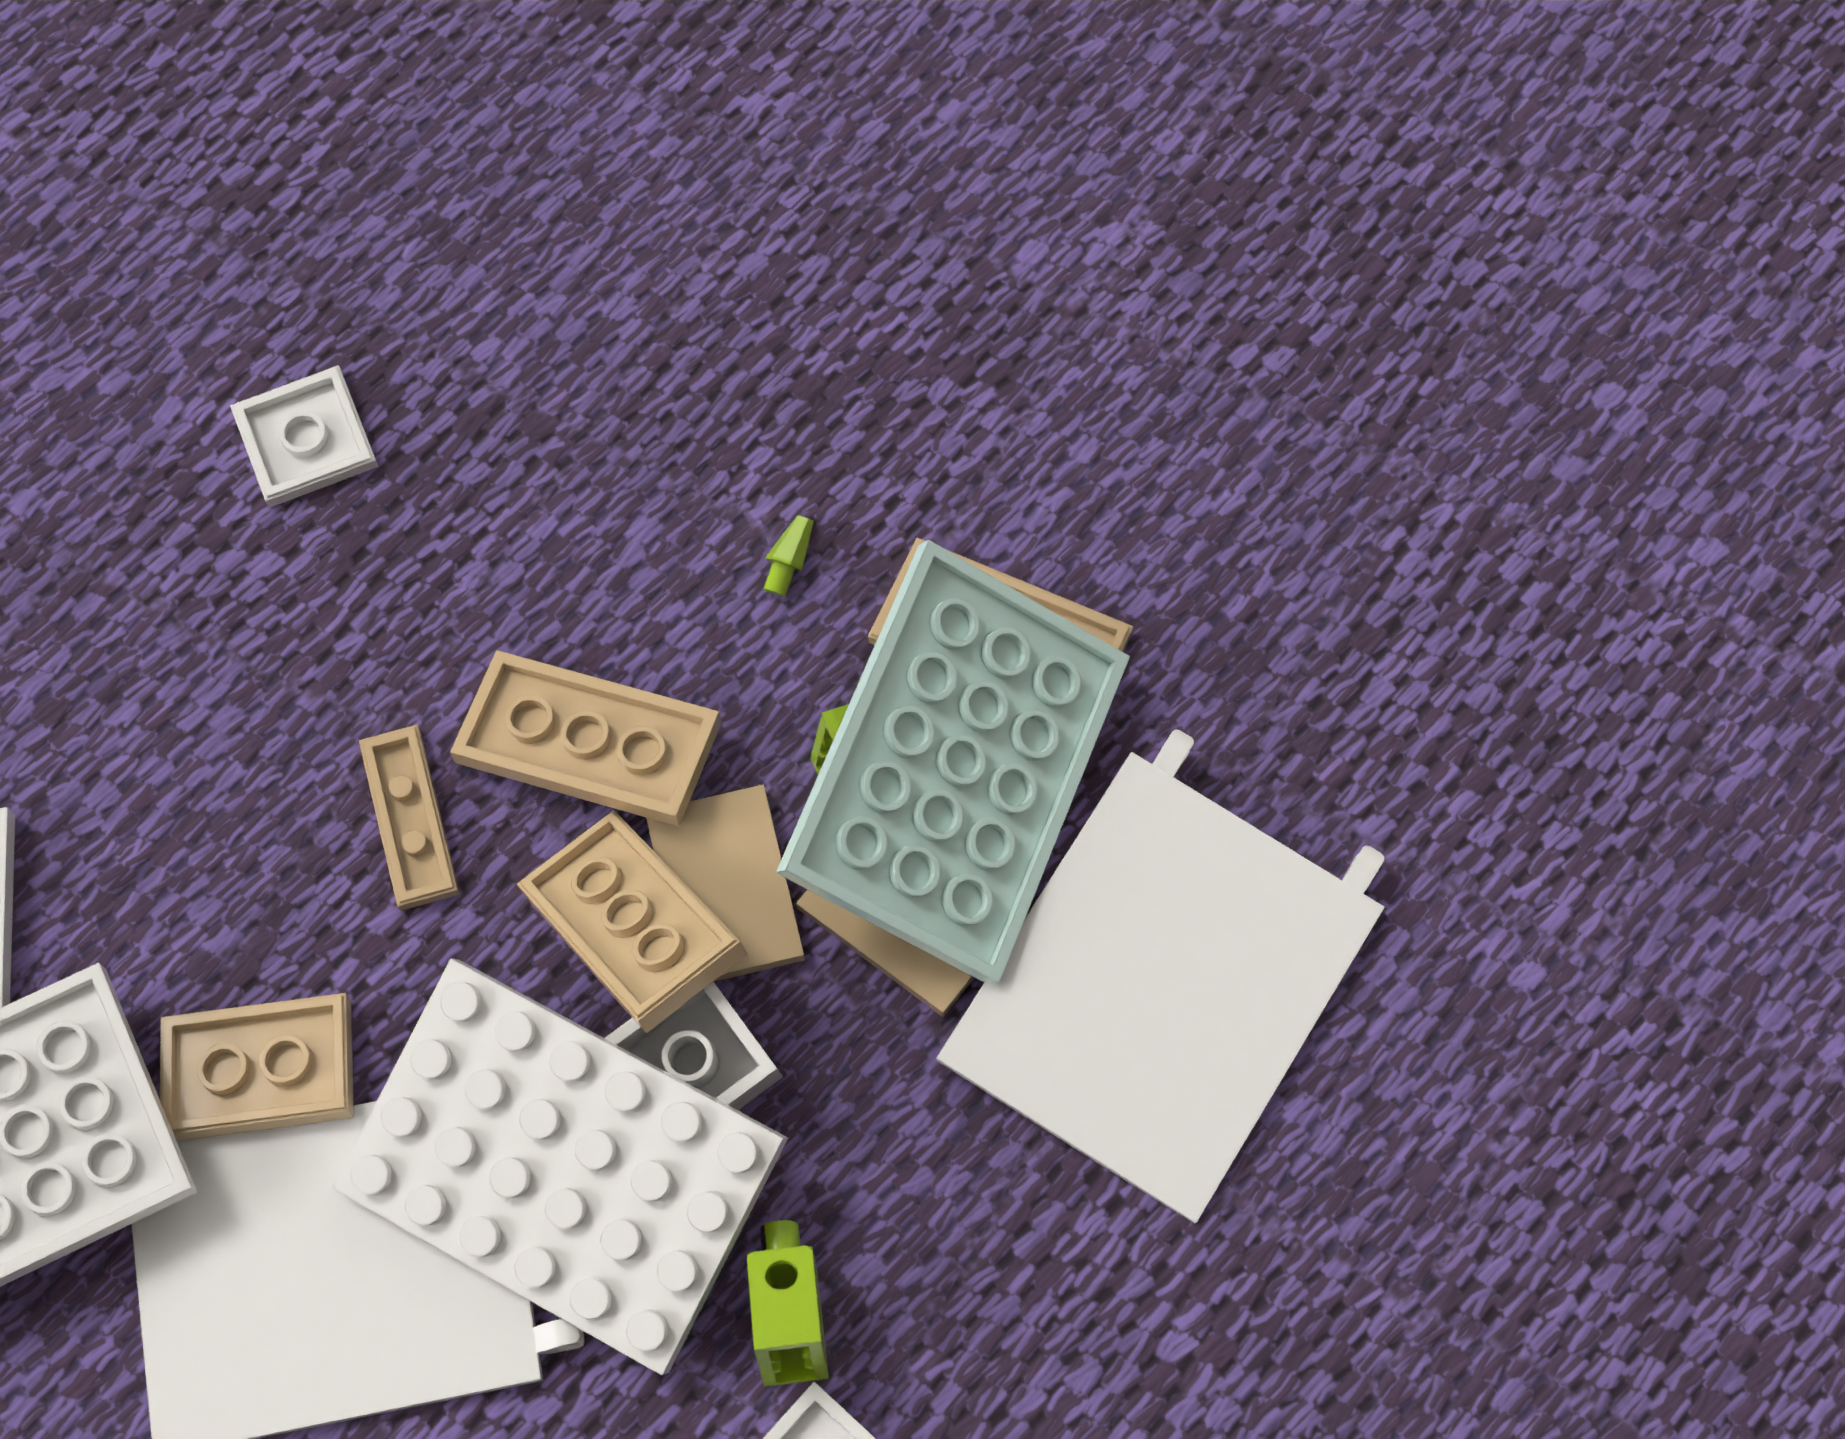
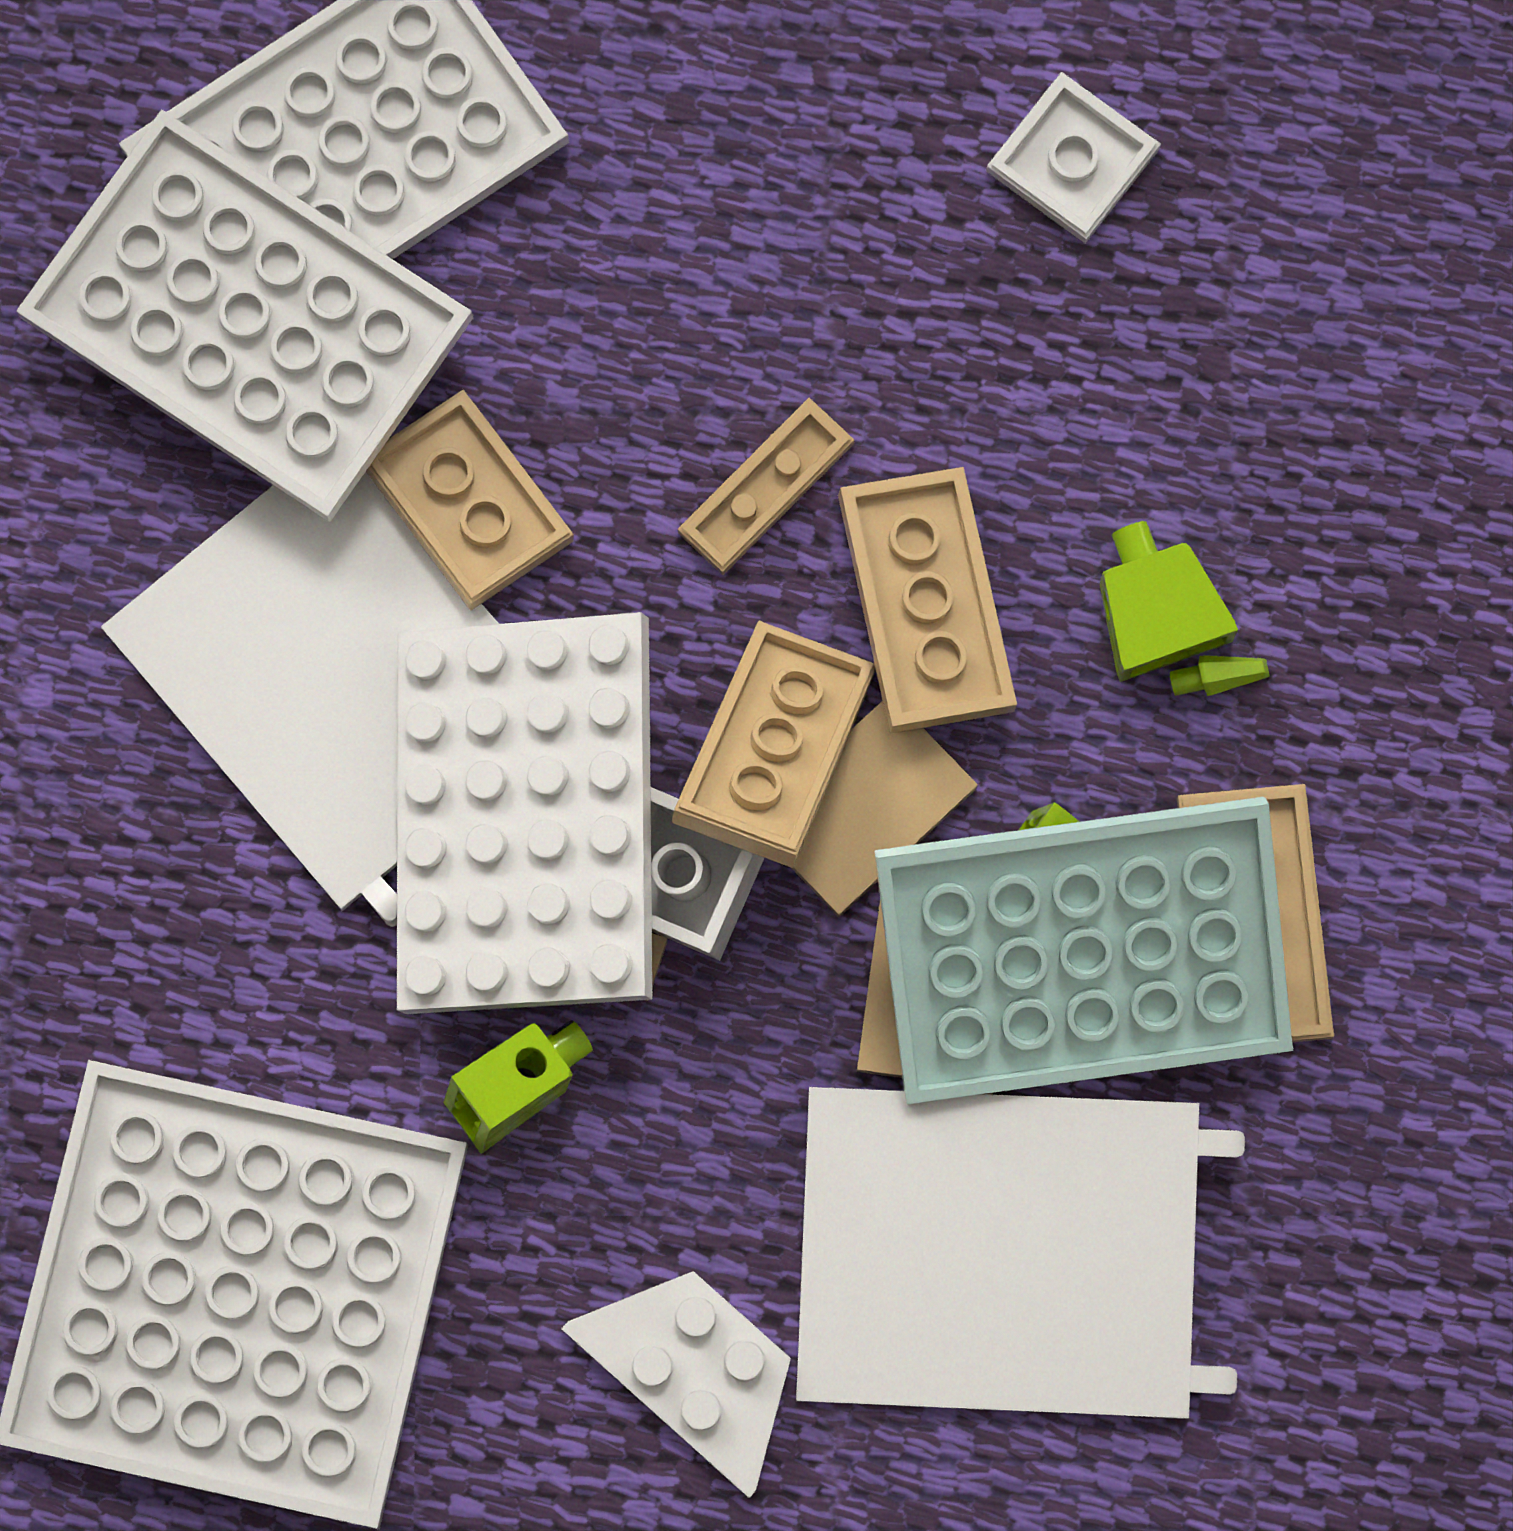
camera: 60 degrees right, 10 degrees up
(705, 563) = (1160, 605): none -> lime torso
(1121, 1295) = (694, 1368): none -> white wing

